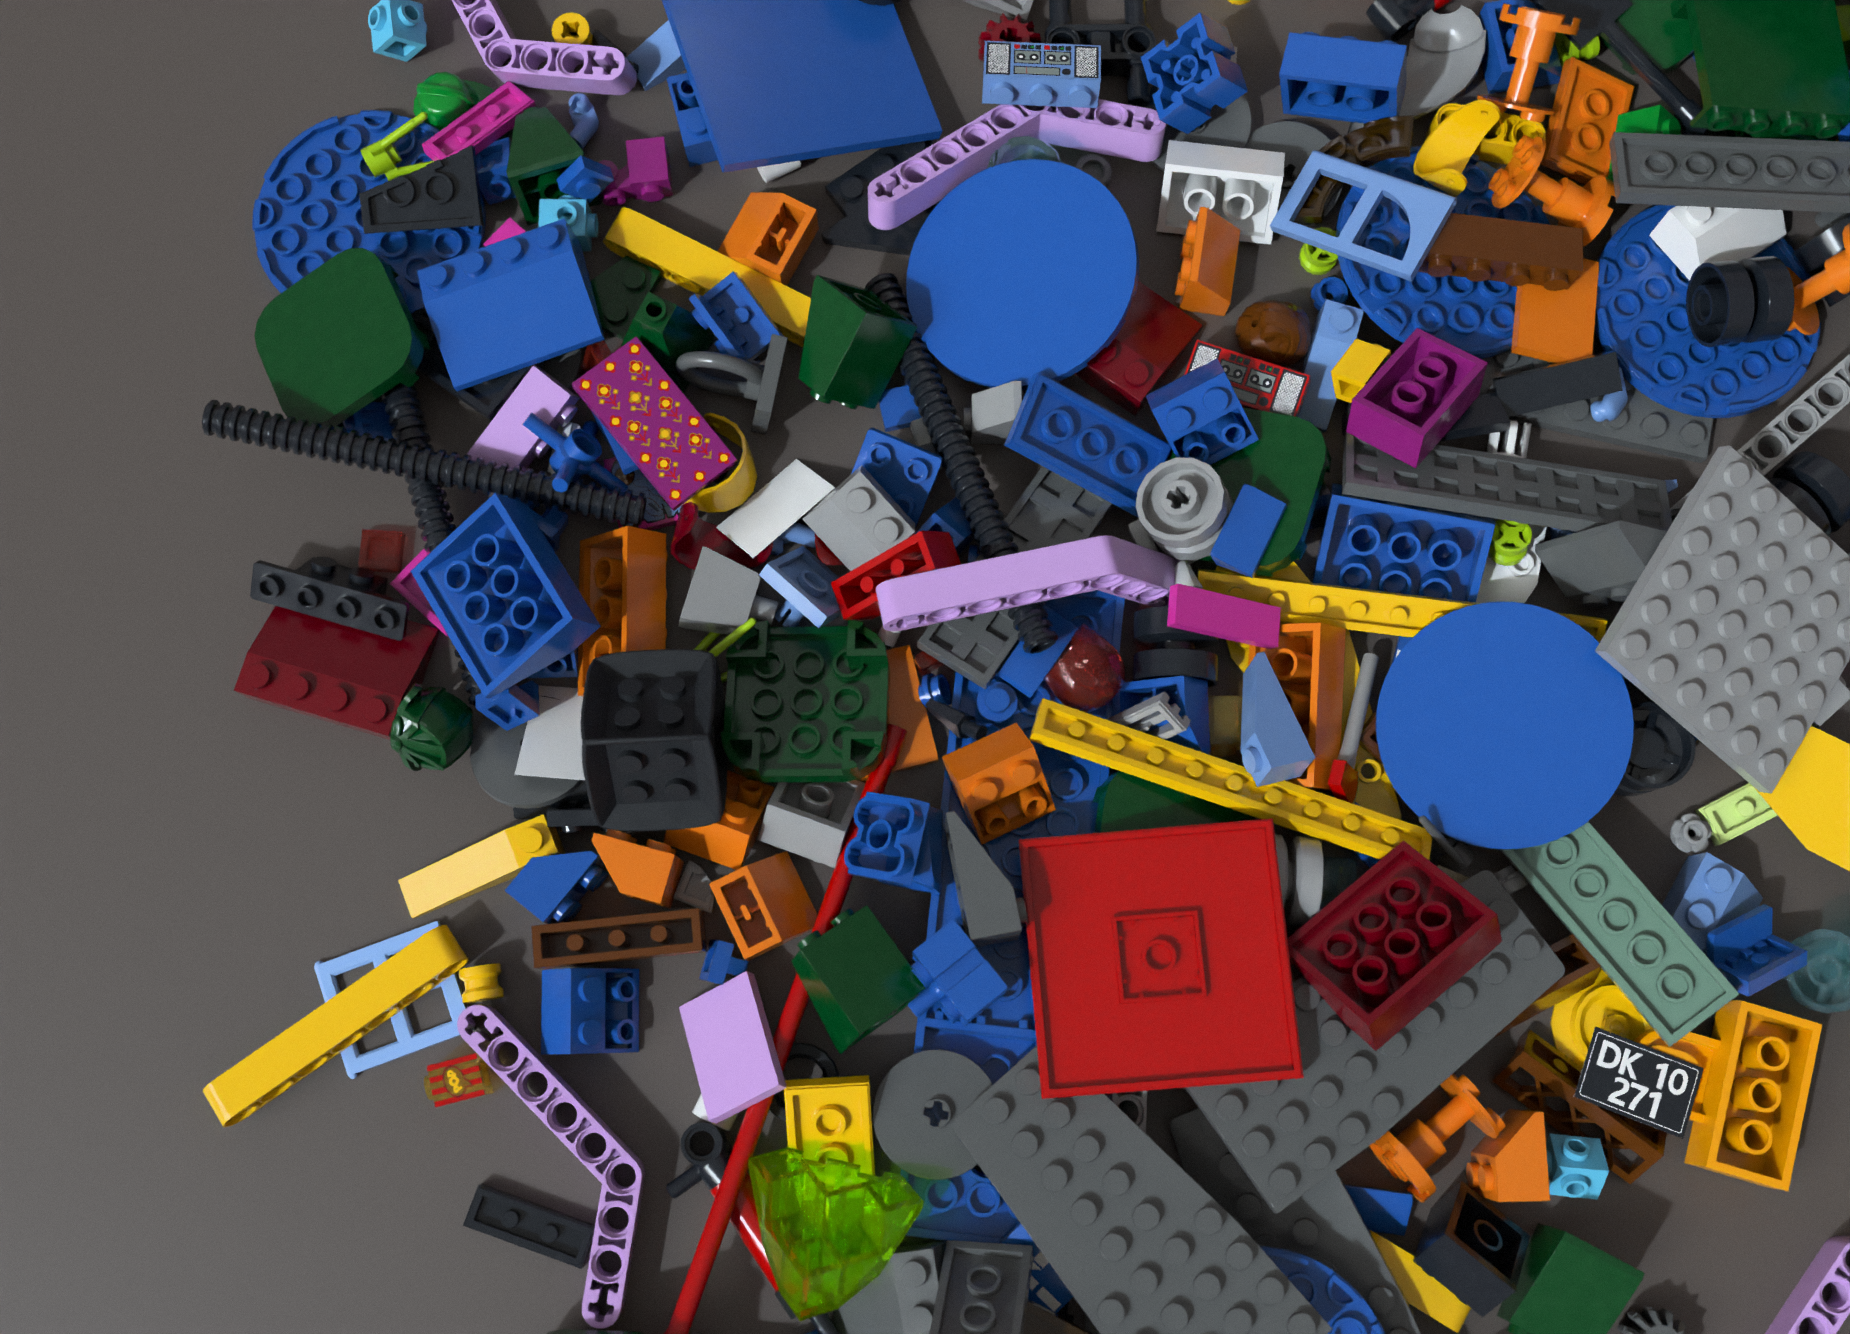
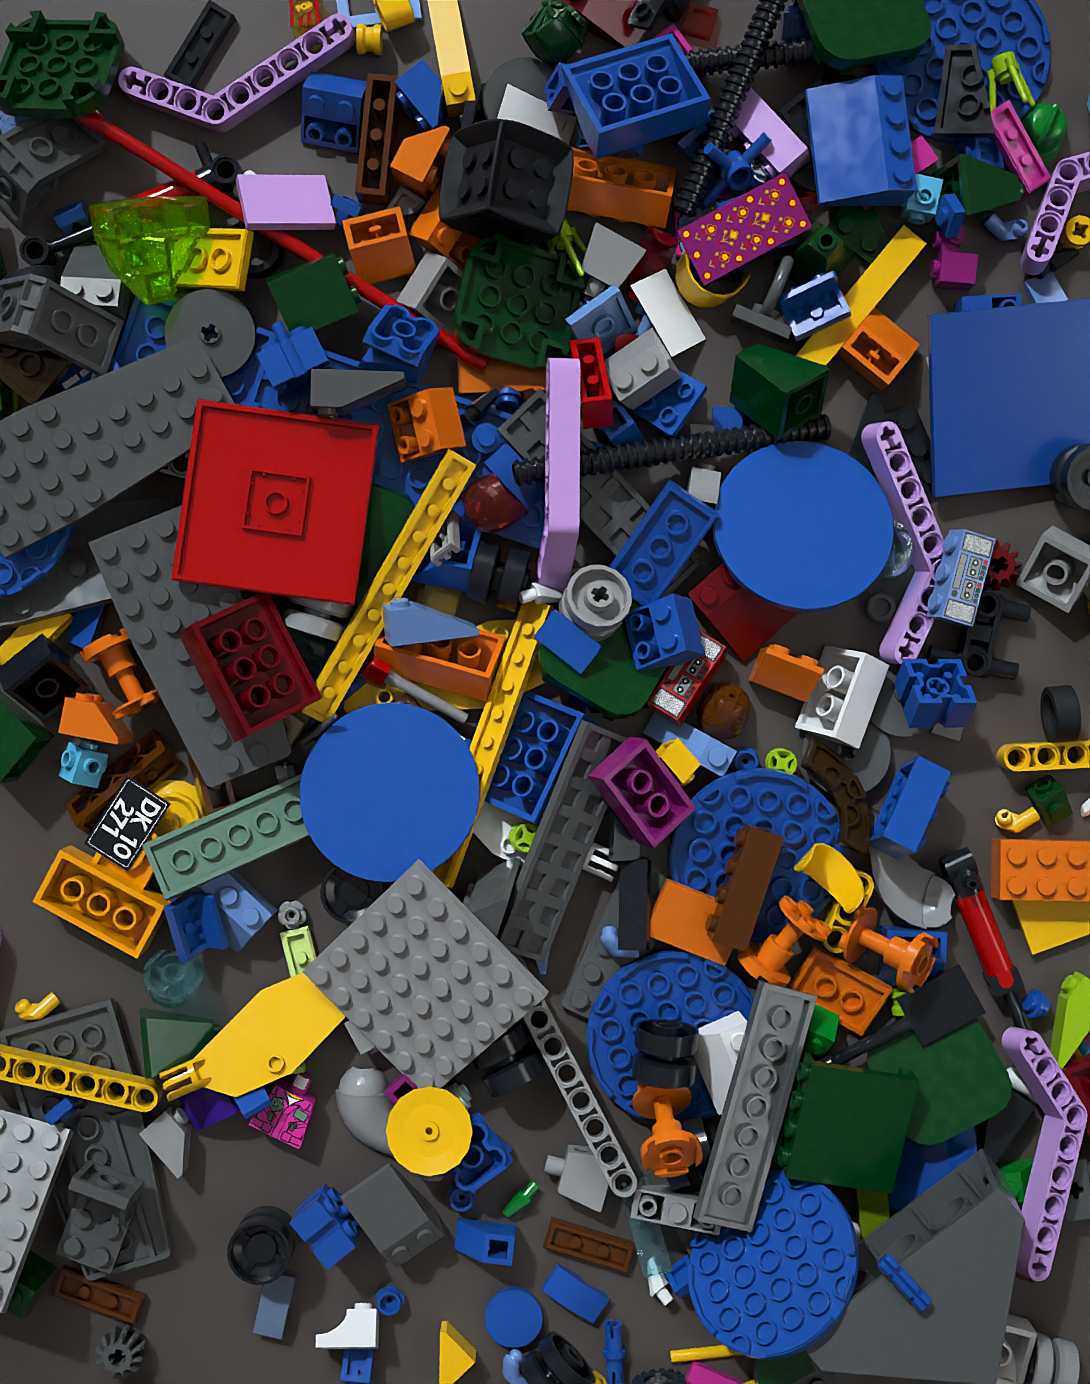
camera: 100 degrees right, 10 degrees up
(1223, 616) = (509, 610): dark pink tile -> none
(1424, 207) = (786, 834): medium blue window -> none

